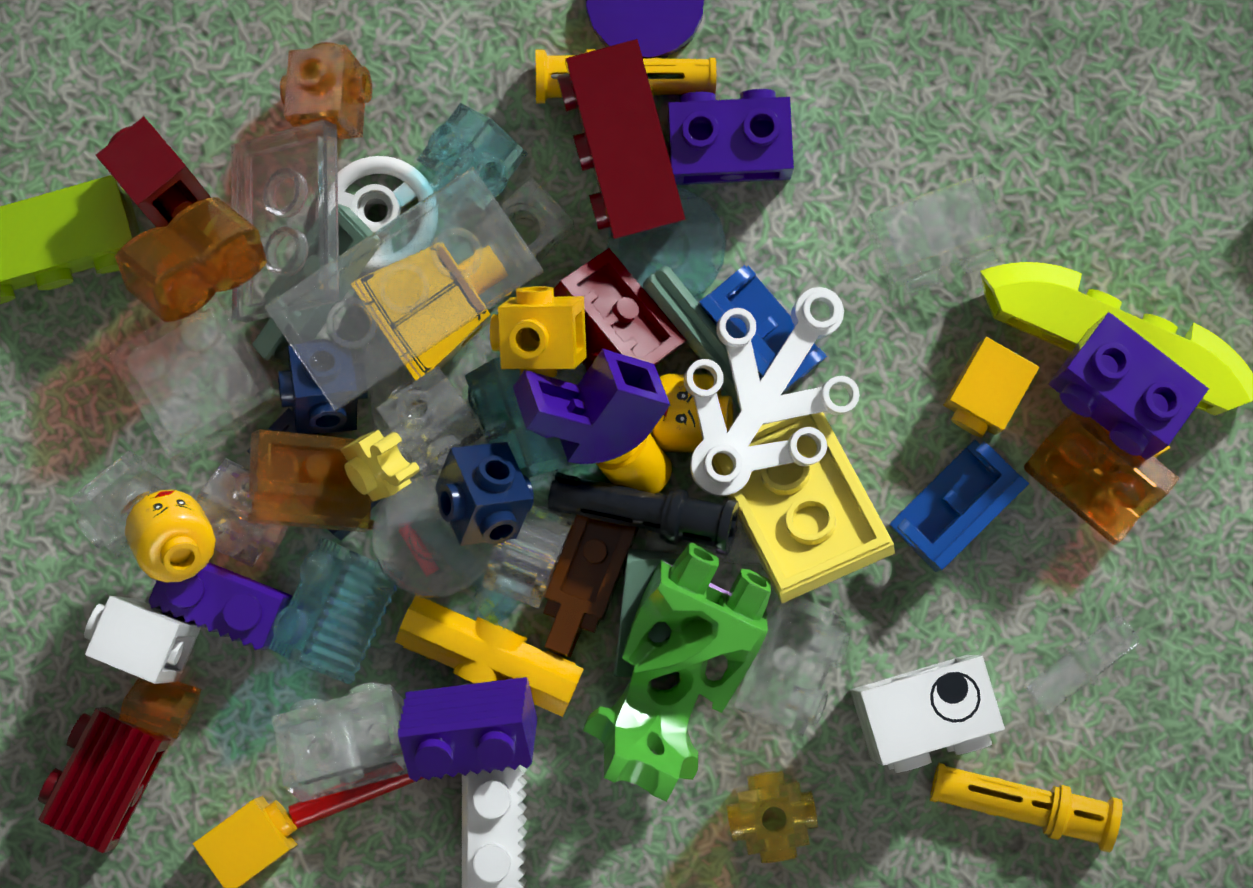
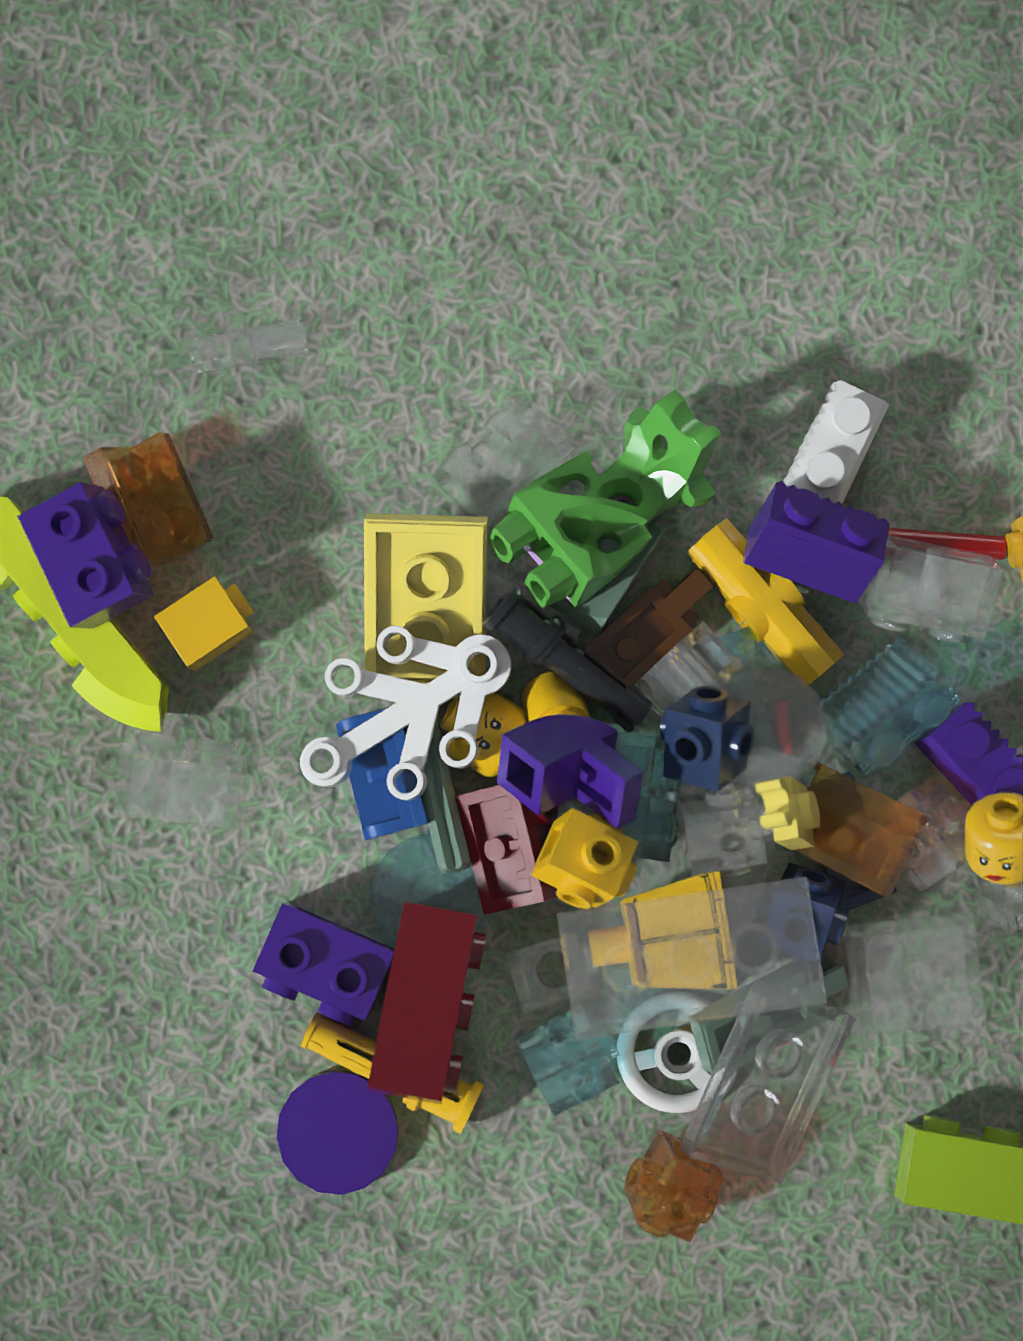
camera: 160 degrees left, 0 degrees up
(151, 172) = (868, 1173): dark red brick -> none
(191, 259) = (870, 1085): clear orange brick -> none
(768, 791) = (579, 364): clear yellow brick -> none
(928, 711) = (406, 364): white brick -> none
(958, 504) = (286, 534): blue hinge -> none
(1054, 810) = (329, 237): yellow pin -> none

